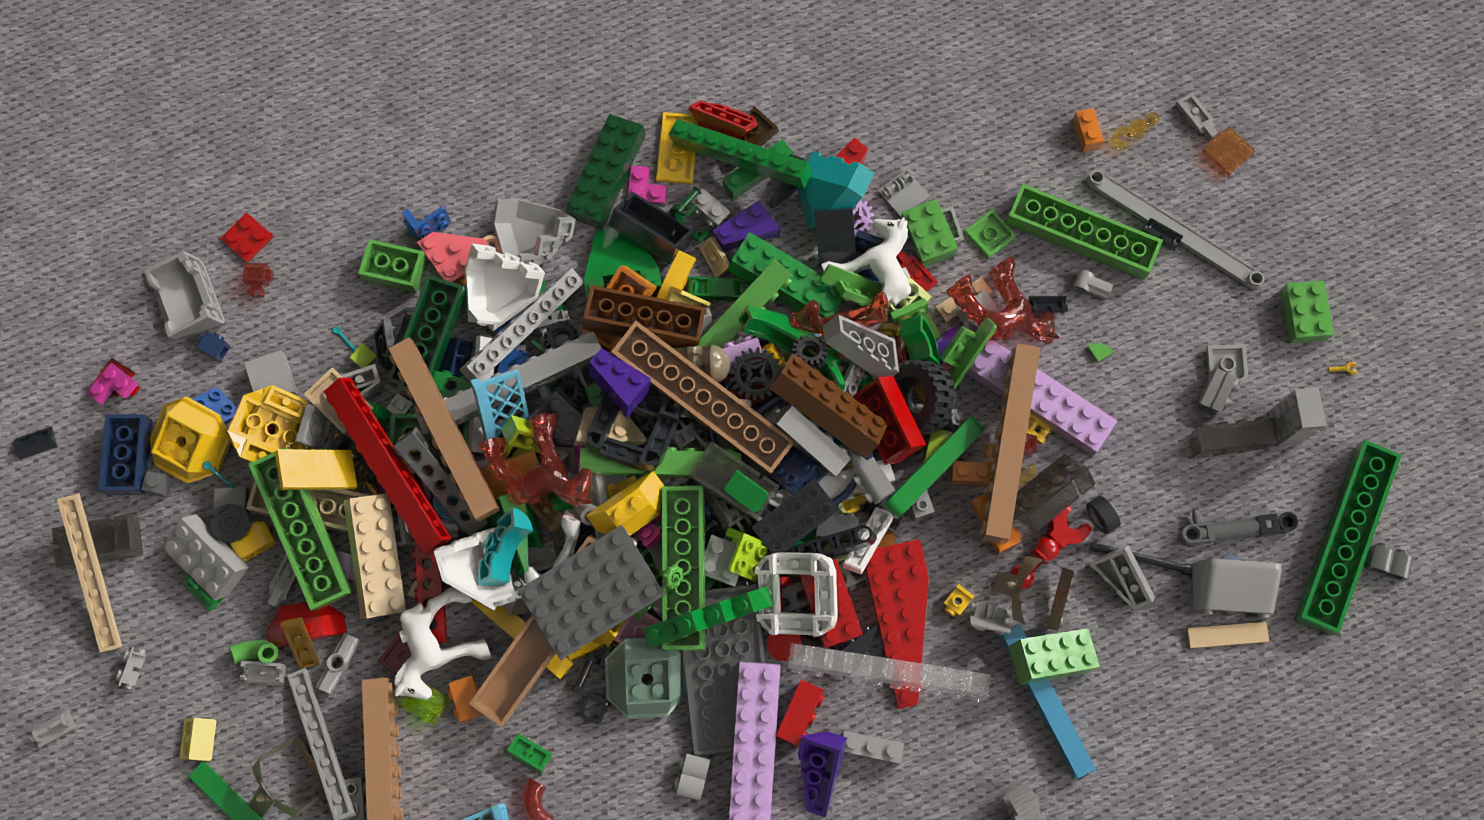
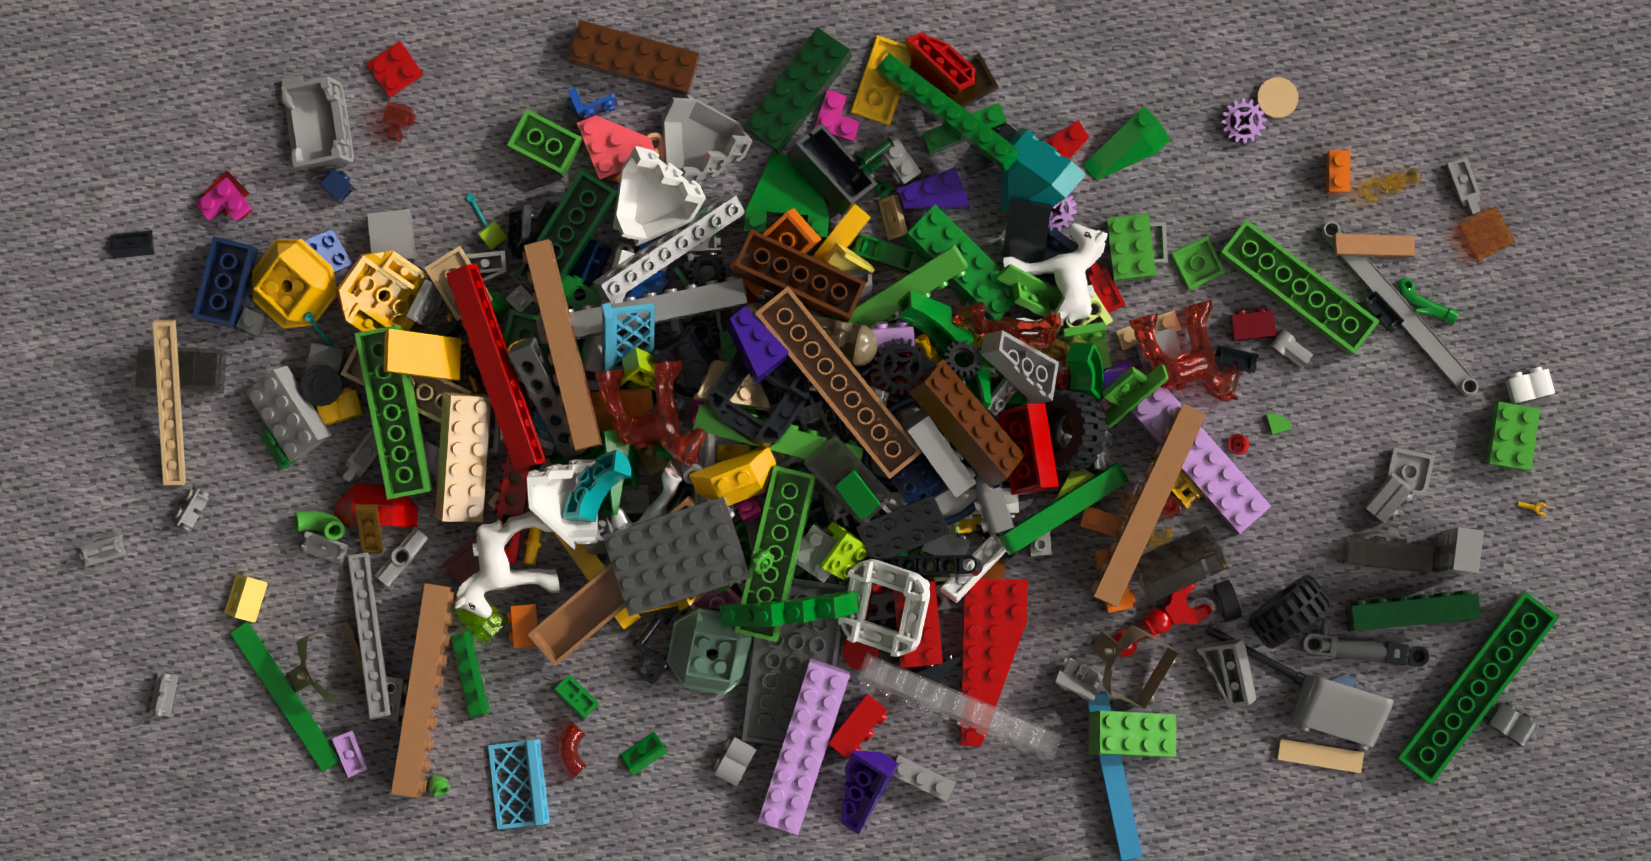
camera: 15 degrees right, 10 degrees up
(425, 757) = (470, 674): none -> green fence
(455, 177) = (634, 58): none -> reddish brown brick
(457, 622) = (532, 546): none -> yellow pin
(605, 792) = (643, 753): none -> green slope
(903, 192) = (1116, 193): light grey hinge -> none
(905, 148) = (1132, 143): none -> green wedge
(965, 597) = (1058, 647): yellow brick -> none
(988, 104) = (1236, 114): none -> lavender gear
(1017, 84) = (1277, 97): none -> tan tile
(1053, 273) = (1252, 325): none -> dark red brick
(1070, 377) = (1238, 444): none -> red tile
(1136, 182) = (1374, 245): none -> medium nougat tile
(1164, 507) = (1289, 611): none -> black tyre
(1218, 225) = (1426, 306): none -> green plant
(1270, 482) = (1408, 612): none -> dark green brick
(1308, 266) = (1529, 386): none -> white brick

